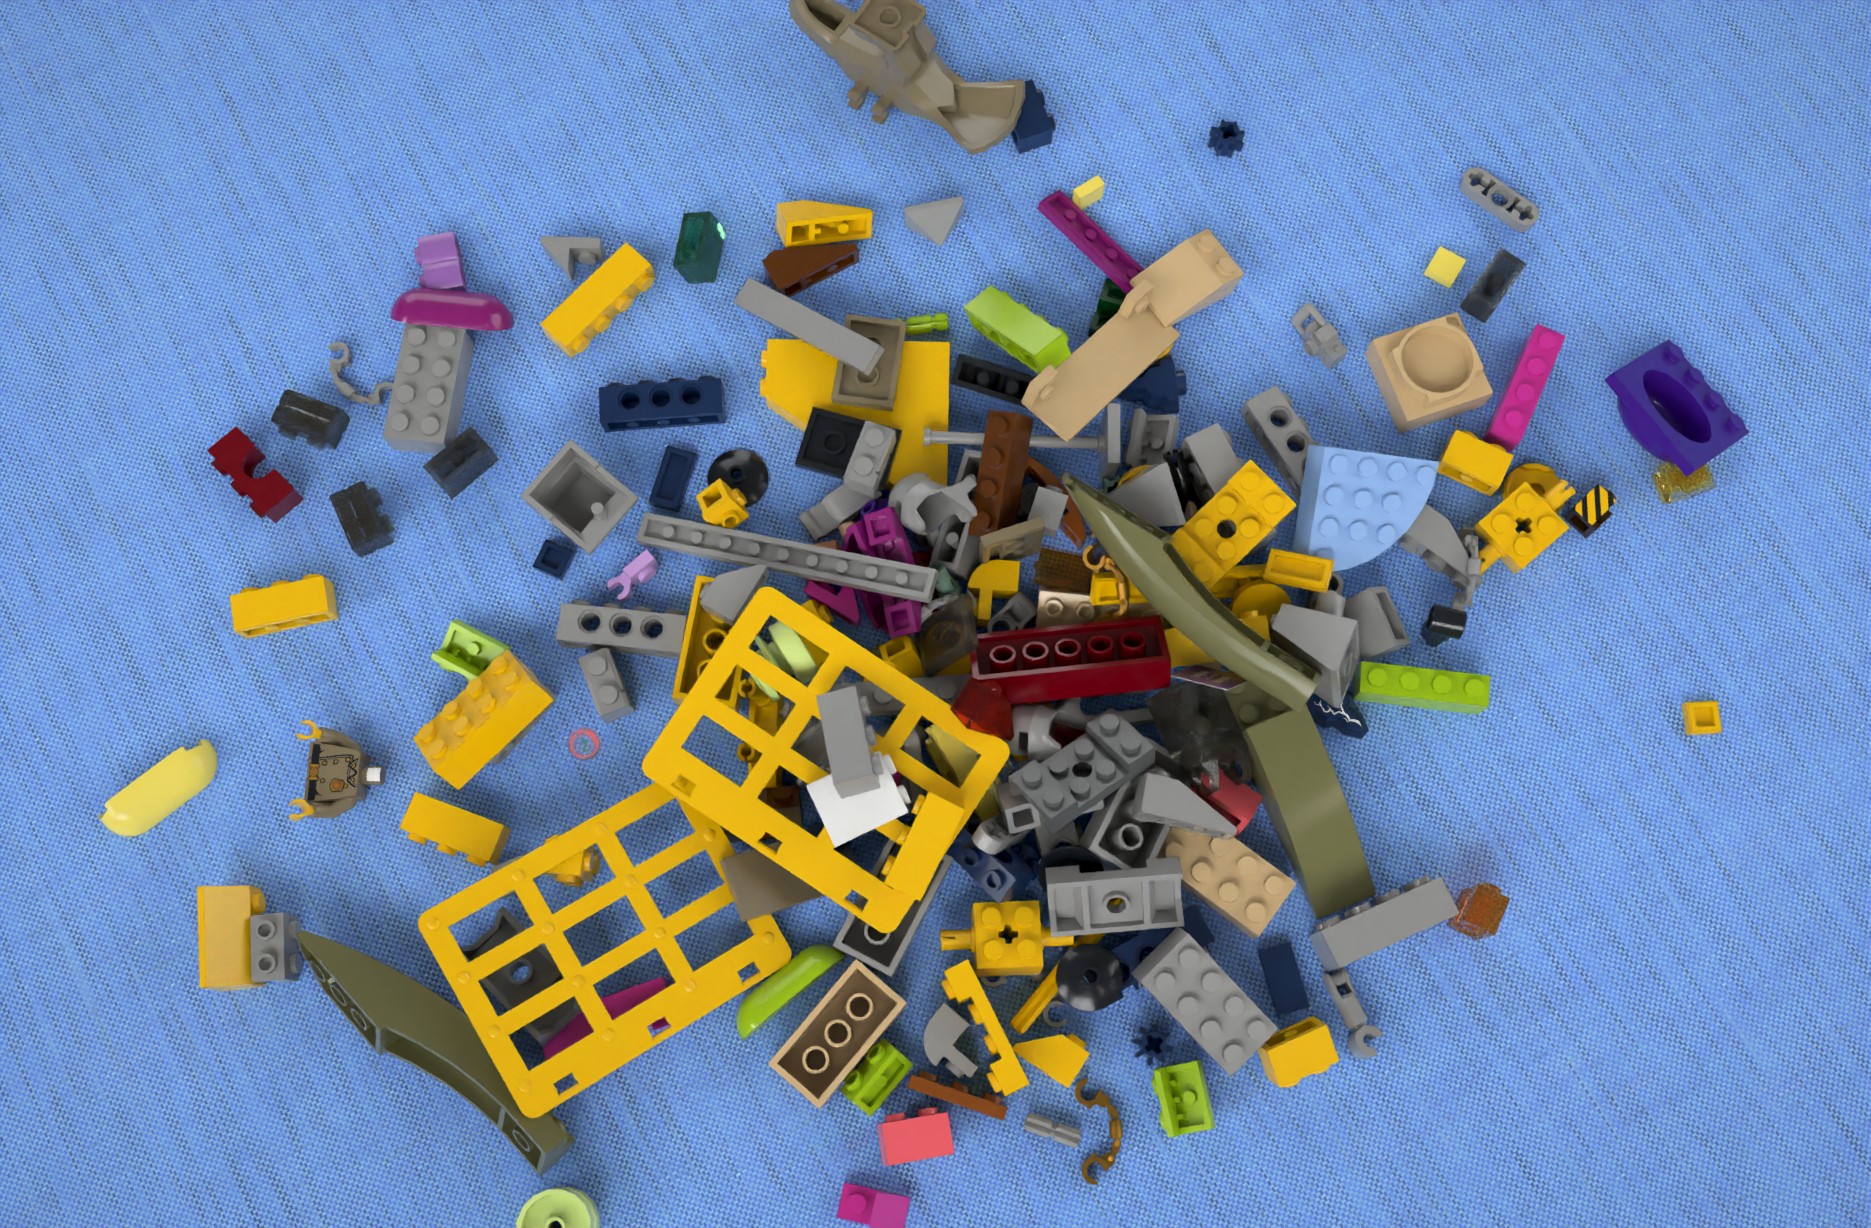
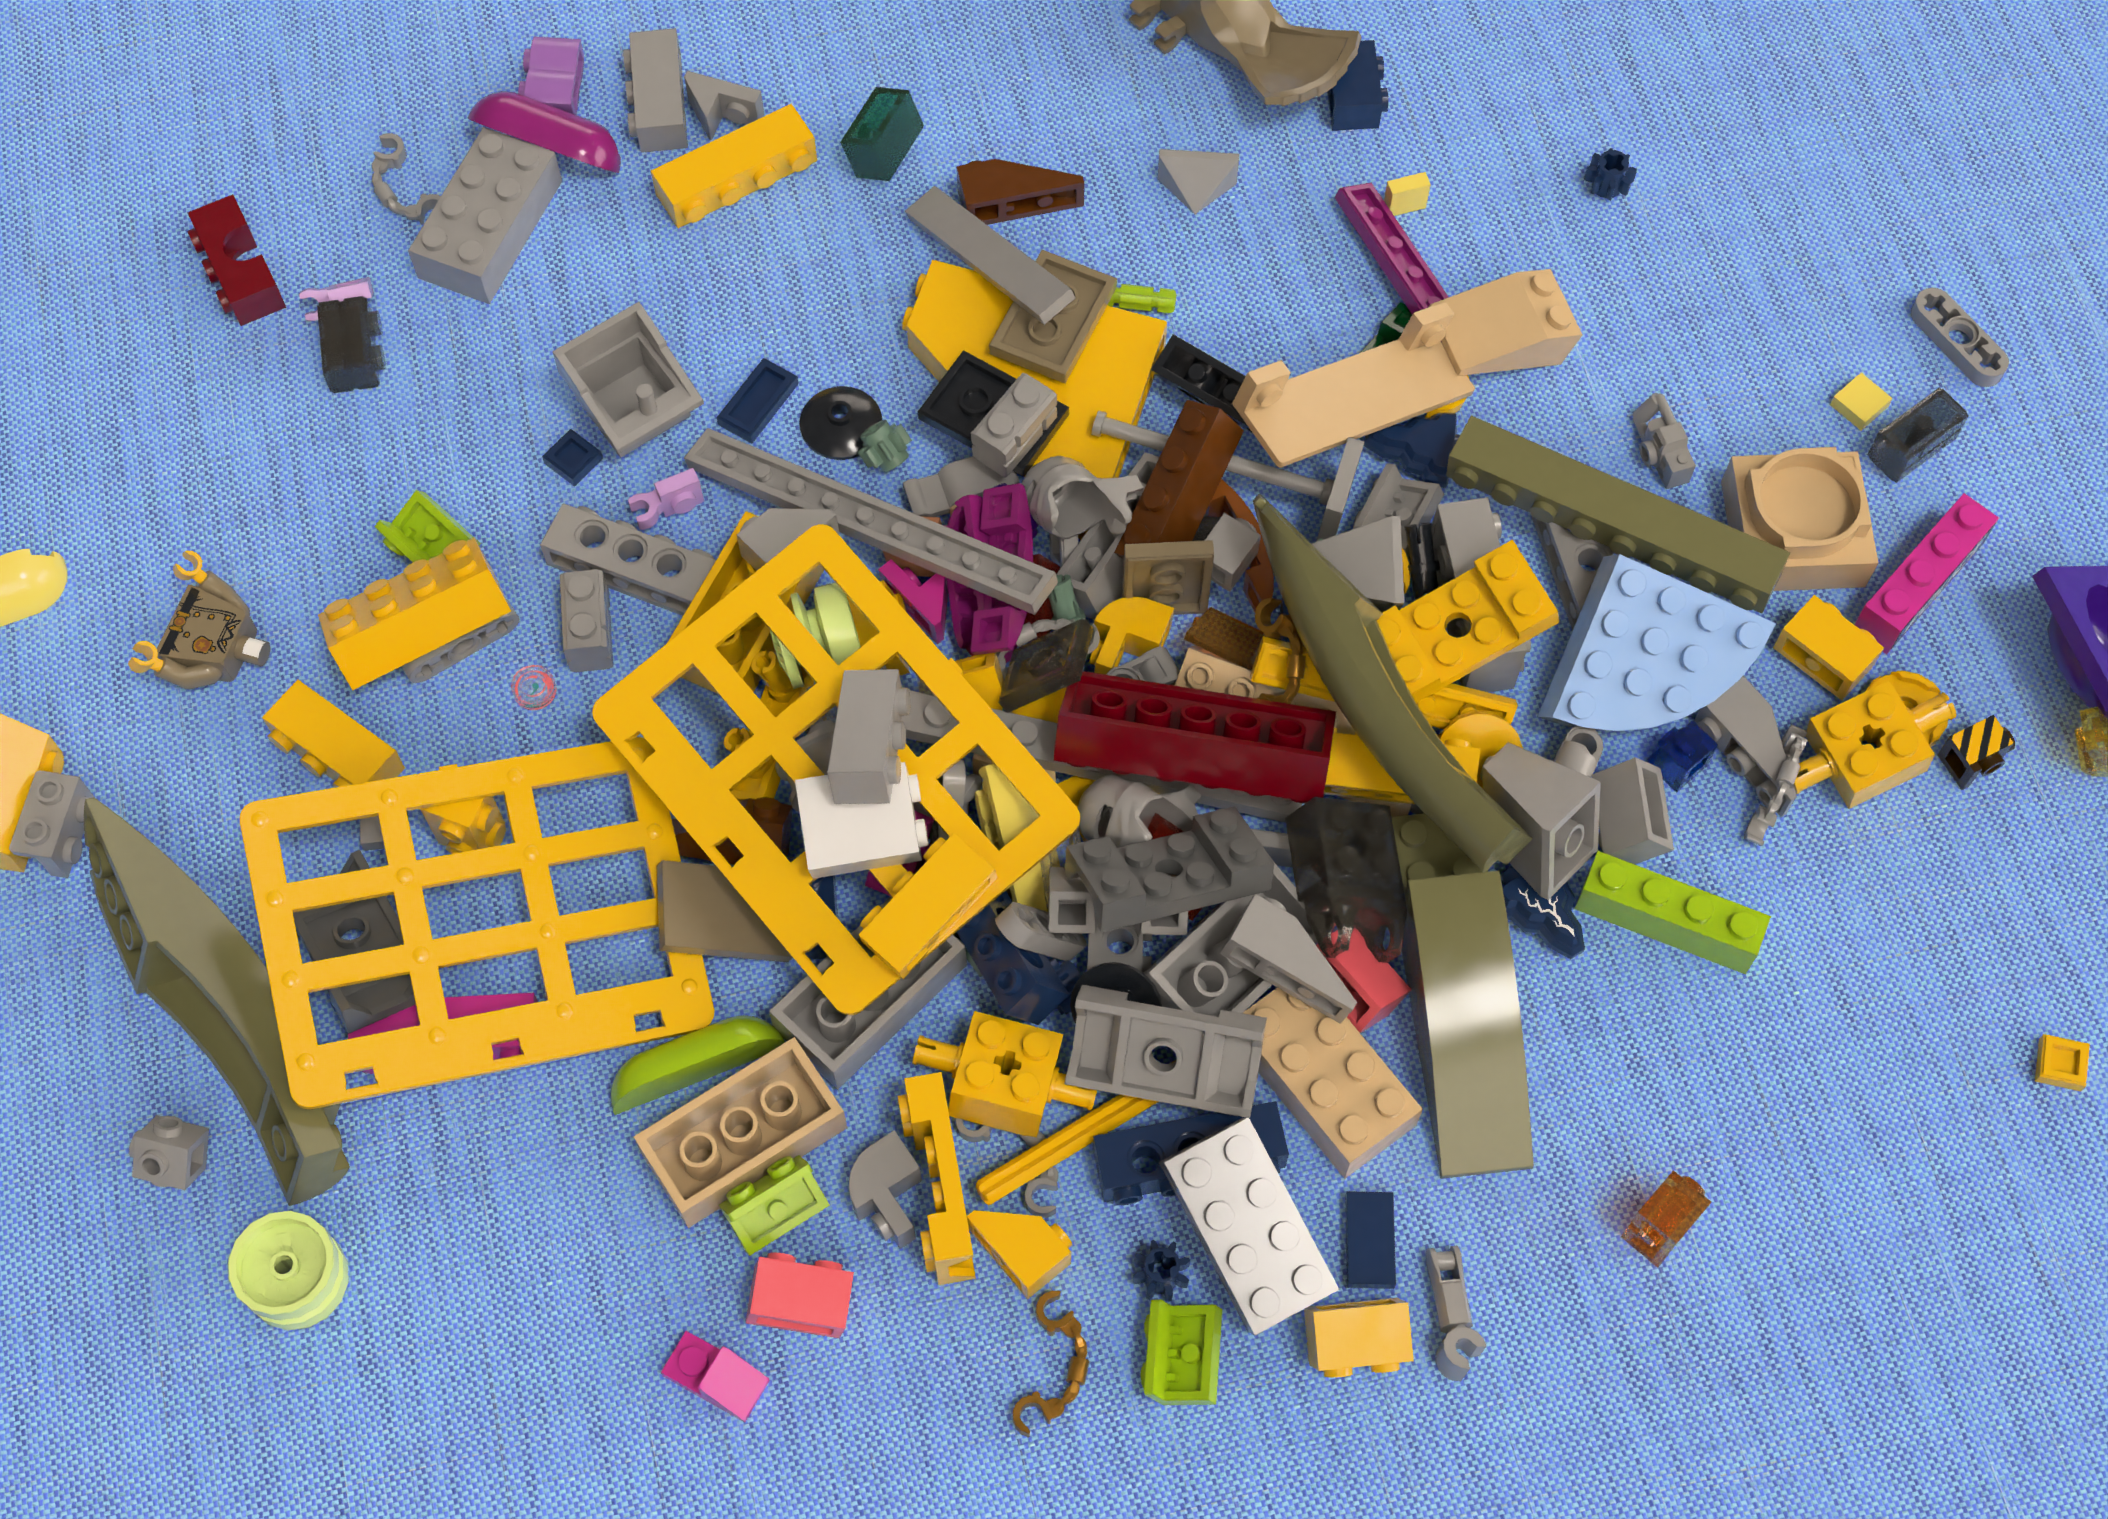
camera: 15 degrees right, 10 degrees down
(283, 606) = (214, 421): yellow brick -> none
(310, 419) = (327, 214): clear smoke brick -> none
(340, 480) = (339, 292): none -> lavender plate
(444, 1166) = (169, 1152): none -> light grey brick
(461, 462) = (495, 308): clear smoke brick -> none
(521, 255) = (656, 90): none -> light grey brick
(677, 413) = (790, 321): dark blue brick -> none
(722, 512) = (809, 441): yellow brick -> none
(776, 491) = (884, 445): none -> sand green gear
(821, 223) = (1049, 144): yellow slope -> none
(958, 1094) = (875, 1260): dark orange plate -> none
(984, 709) = (1063, 754): clear red slope -> none
(1017, 330) = (1258, 323): lime brick -> none
(1045, 1128) = (998, 1351): light grey piece -> none
(1071, 979) = (1094, 1173): black dish -> none
(1210, 677) = (1380, 803): medium lavender sticker -> none
(1298, 570) = (1543, 708): yellow tile -> none
(1308, 408) = (1616, 514): none -> olive brick
(1389, 921) = (1528, 1196): light grey brick -> none
(1395, 570) = (1683, 754): none -> clear blue brick
(1443, 624) = (1723, 837): black piece -> none

